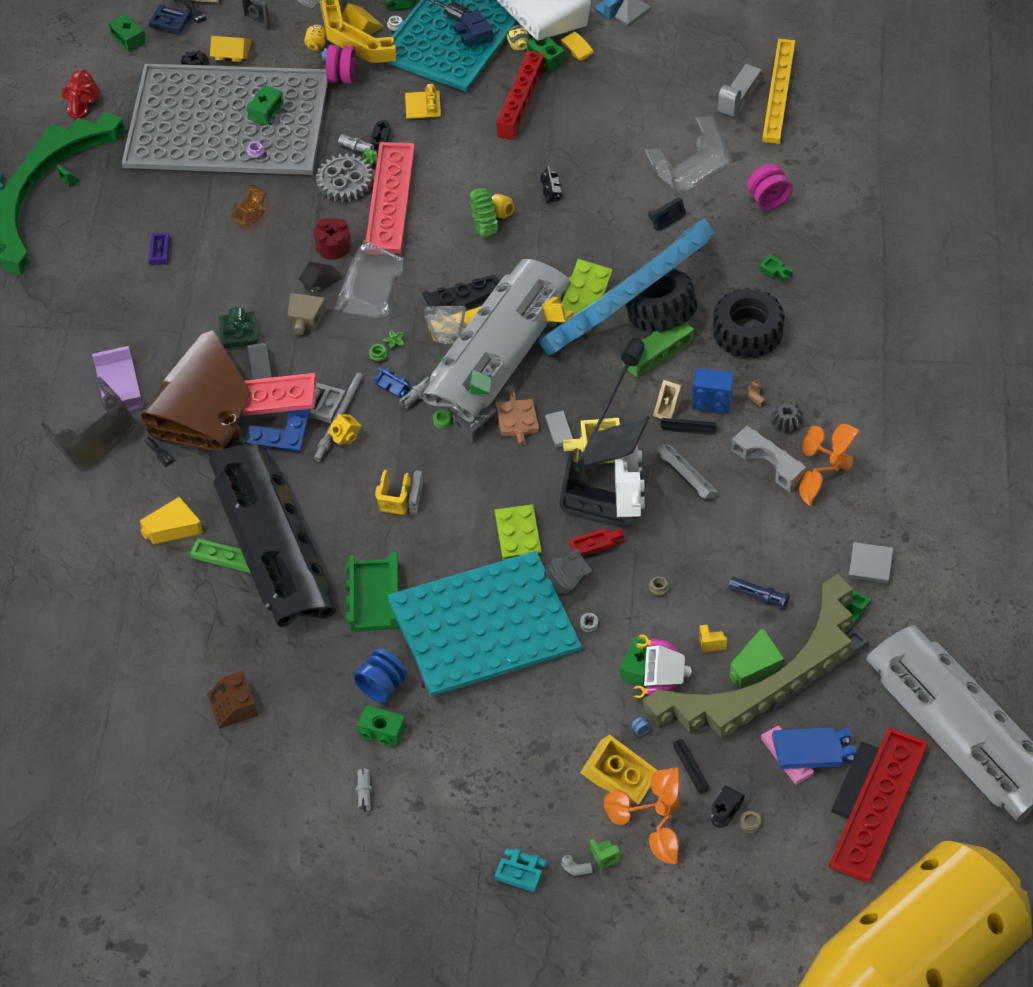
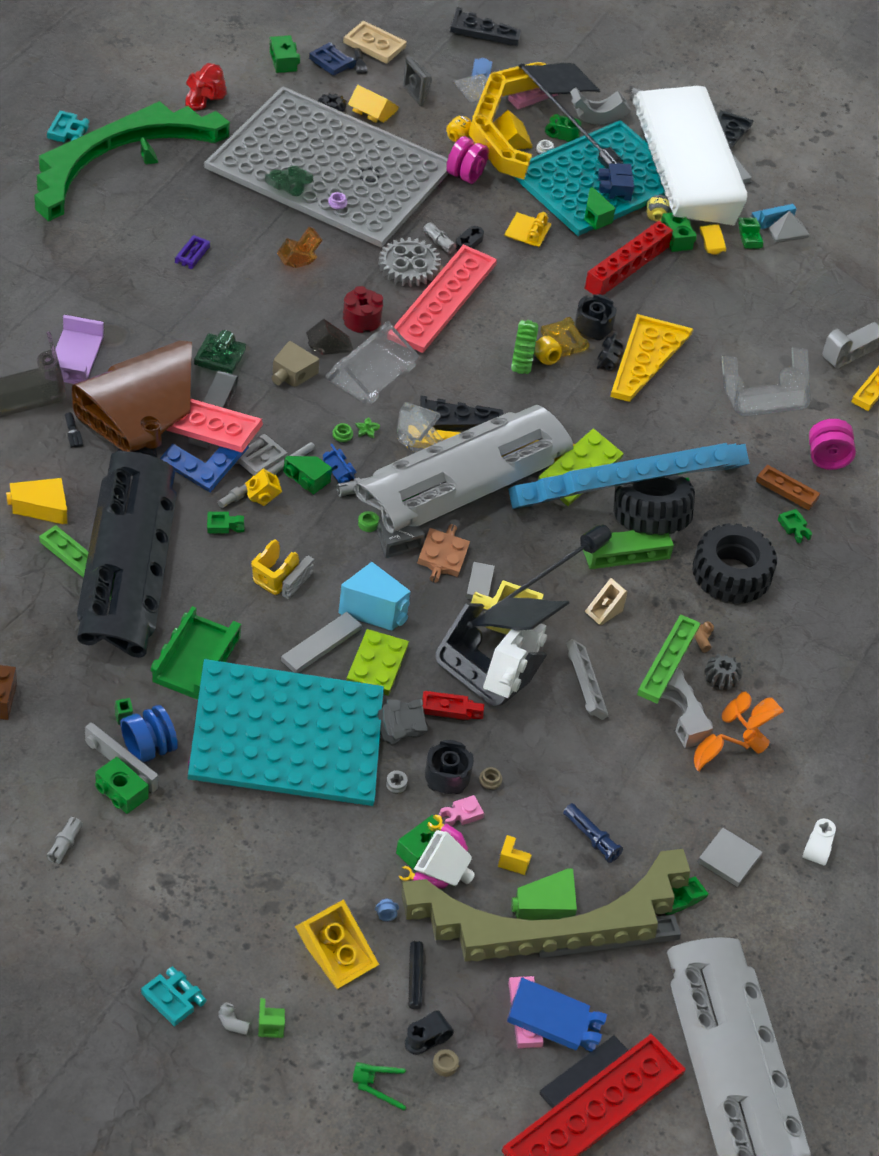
camera: 15 degrees right, 5 degrees down
(203, 147) = (284, 179): none -> clear green plate
(265, 105) = (371, 165): green brick -> none
(328, 474) = (221, 522): none -> green plate
(346, 666) = (123, 709): none -> green piece
(357, 701) = (110, 748): none -> light grey plate
(370, 156) = (446, 253): bright green plate -> none
(371, 399) = (308, 472): none -> green slope
(465, 537) = (321, 642): none -> light grey tile
(473, 62) = (598, 210): none -> green slope
(480, 383) = (417, 497): green slope -> none
(489, 481) = (375, 598): none -> medium azure slope
(496, 186) = (557, 332): none -> clear yellow plate
(523, 159) = (595, 316): none -> black brick
(555, 311) = (538, 465): yellow panel -> none
(579, 169) = (647, 350): none -> yellow wing
(603, 27) = (750, 232): none -> green slope
(624, 592) = (449, 767): none -> black brick
(653, 620) = (464, 810): none -> bright pink plate
(666, 785) = (366, 978): orange plant -> none
(667, 214) = (713, 427): black tile -> none
(688, 425) = (616, 636): black axle -> none
(698, 859) = (366, 1074): none -> green plant
(712, 390) = (657, 610): blue brick -> none
(743, 426) = (668, 659): none -> bright green plate
(753, 238) = (788, 487): none -> dark orange plate
(932, 520) = (820, 841): none -> white piece

